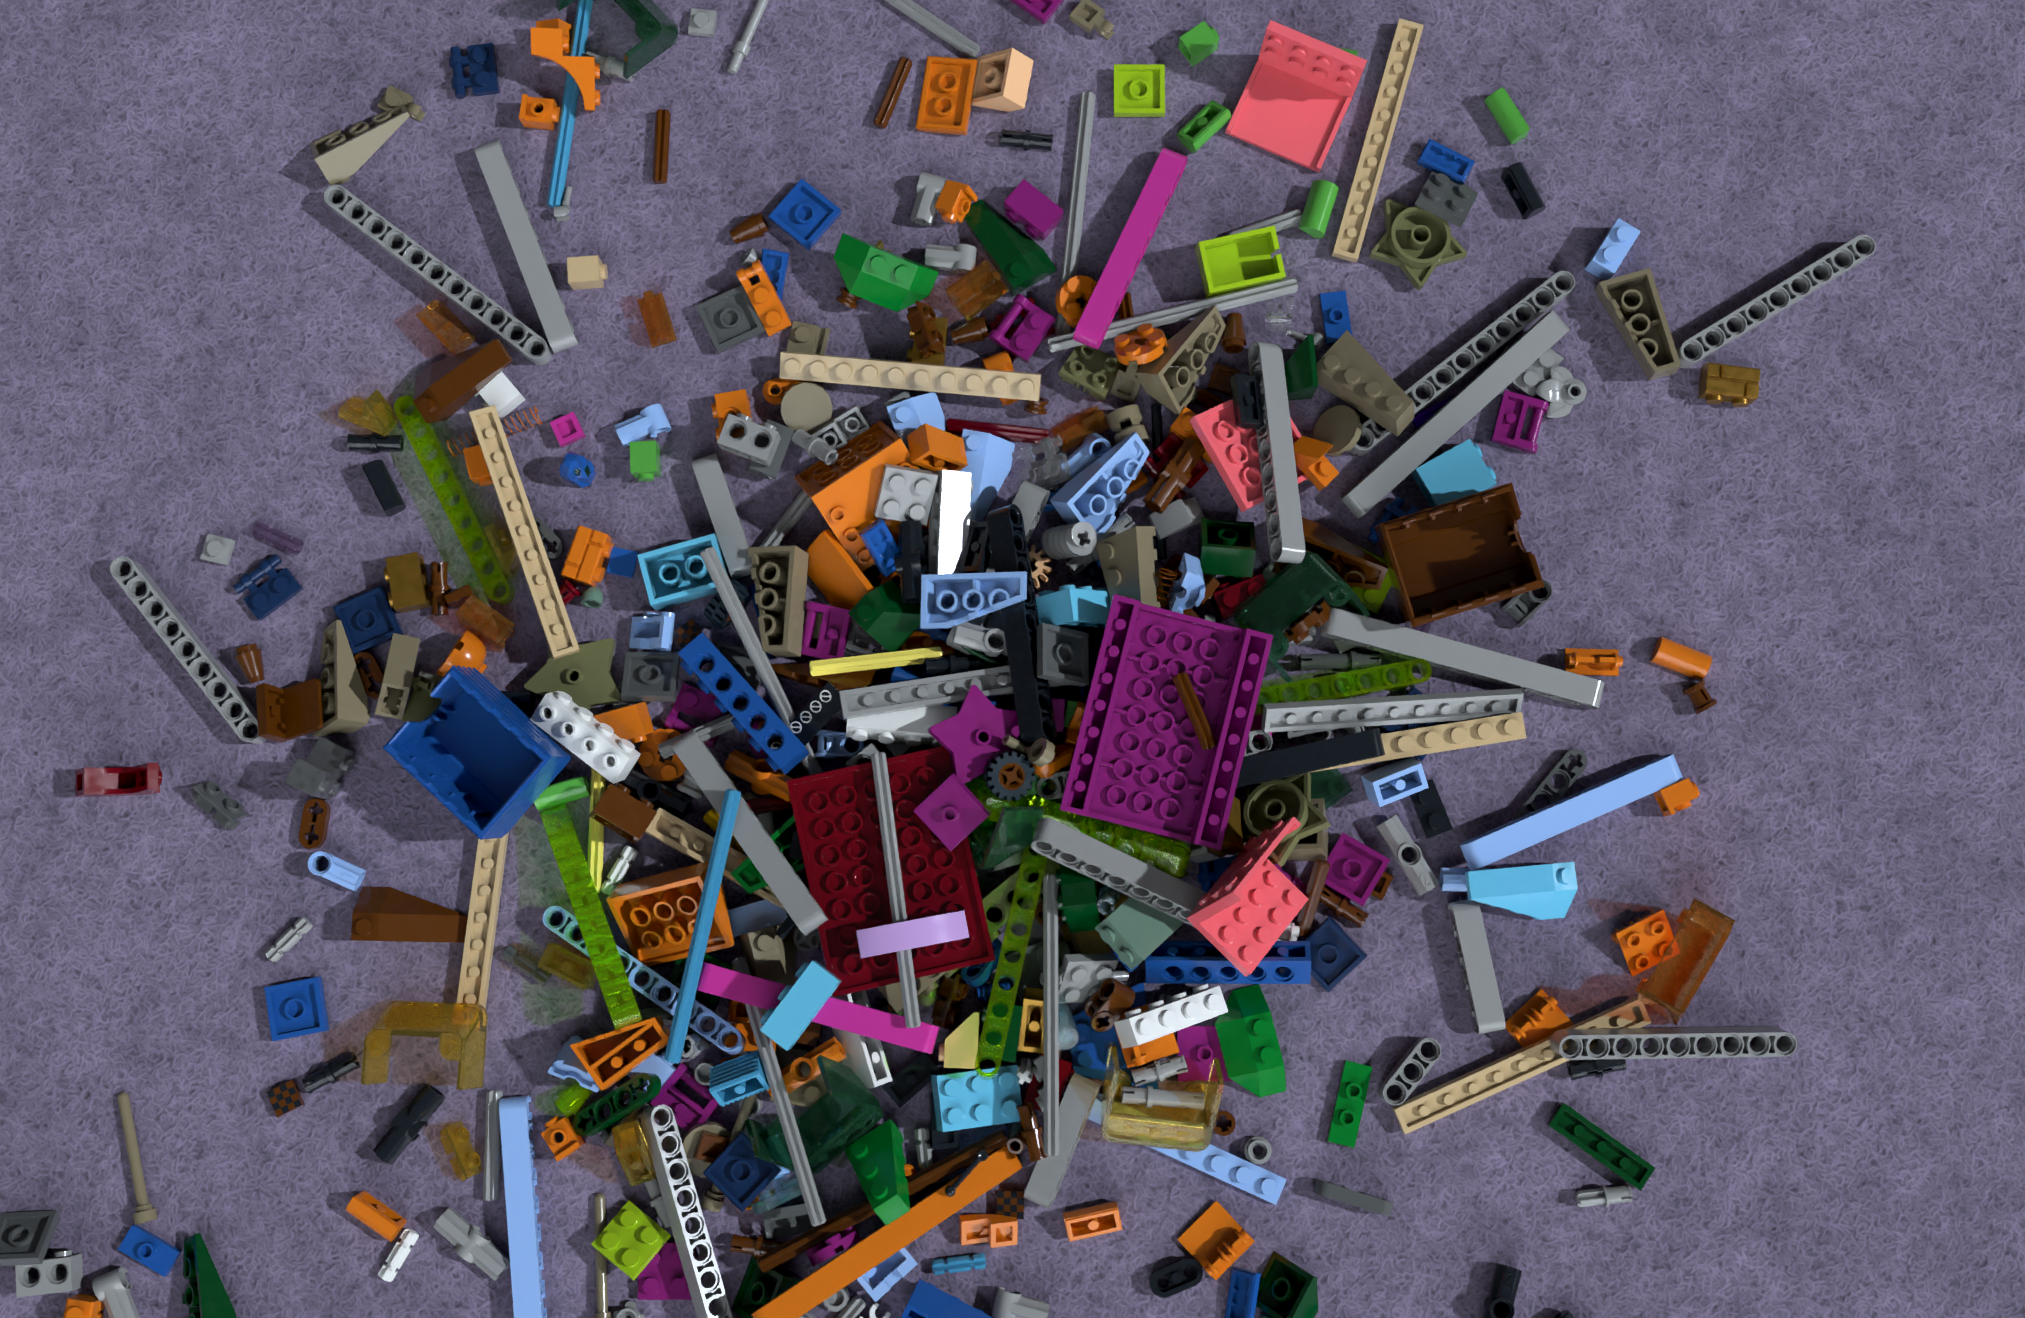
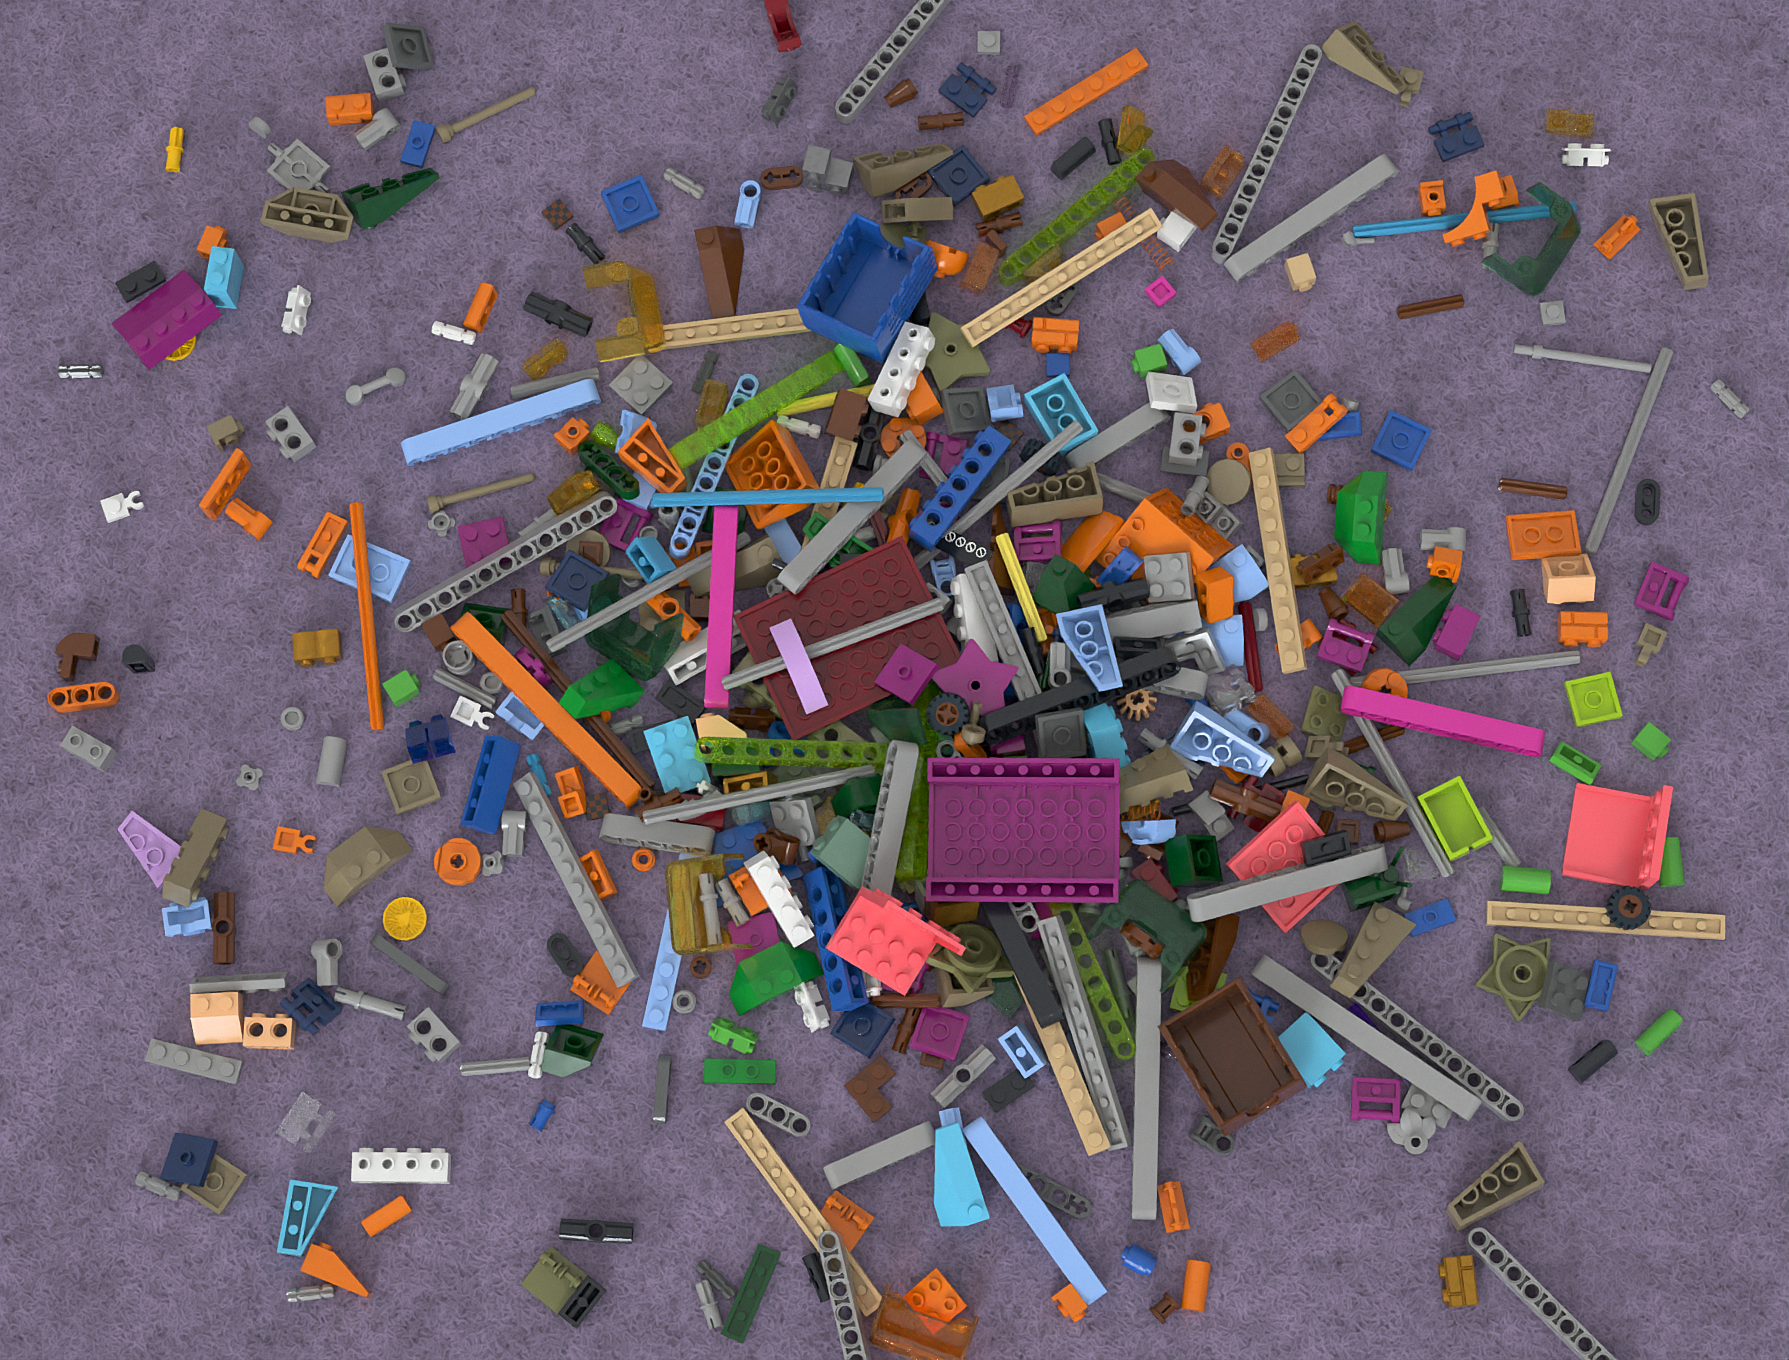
camera: 80 degrees right, 5 degrees down
(289, 711) = (868, 133): reddish brown bracket -> none
(297, 625) = (940, 121): none -> reddish brown pin
(308, 455) = (1086, 91): none -> orange plate
(521, 1043) = (641, 384): none -> light grey plate
(577, 470) = (1127, 308): blue rock -> none
(592, 598) = (1021, 348): sand green hinge -> none
(631, 1240) = (503, 508): lime plate -> none
(689, 444) = (1171, 392): none -> white plate
(750, 228) = (1376, 398): reddish brown cone -> none
(799, 1004) = (720, 586): medium azure brick -> none
(969, 411) = (1260, 619): none -> light grey tile
(981, 1155) = (629, 769): black hinge -> none
(987, 483) = (1198, 646): none -> light grey plate
(1037, 407) = (1279, 676): reddish brown bush -> none
(1059, 80) = (1582, 628): none -> orange brick
(1069, 540) = (1164, 724): light grey piece -> none
(1084, 1171) = (643, 852): none -> orange plate
(1091, 1246) = (576, 880): none -> light grey plate
(1140, 345) = (1354, 747): orange plate -> none
(1194, 710) = (1038, 853): reddish brown axle -> none
(1285, 342) = (1391, 875): none -> dark green plant
(1299, 1110) = (743, 1038): none -> bright green hinge
(1306, 1004) = (814, 1017): none -> white hinge
(1312, 462) = (1290, 920): orange slope -> none
(1369, 118) = (1620, 911): none -> black wheel
(1398, 966) = (865, 1088): none -> reddish brown plate
(1576, 1181) = (716, 1279): none -> dark grey axle
(1612, 250) = (1556, 1150): light blue brick -> none
(1643, 712) = (1138, 1260): none -> blue brick

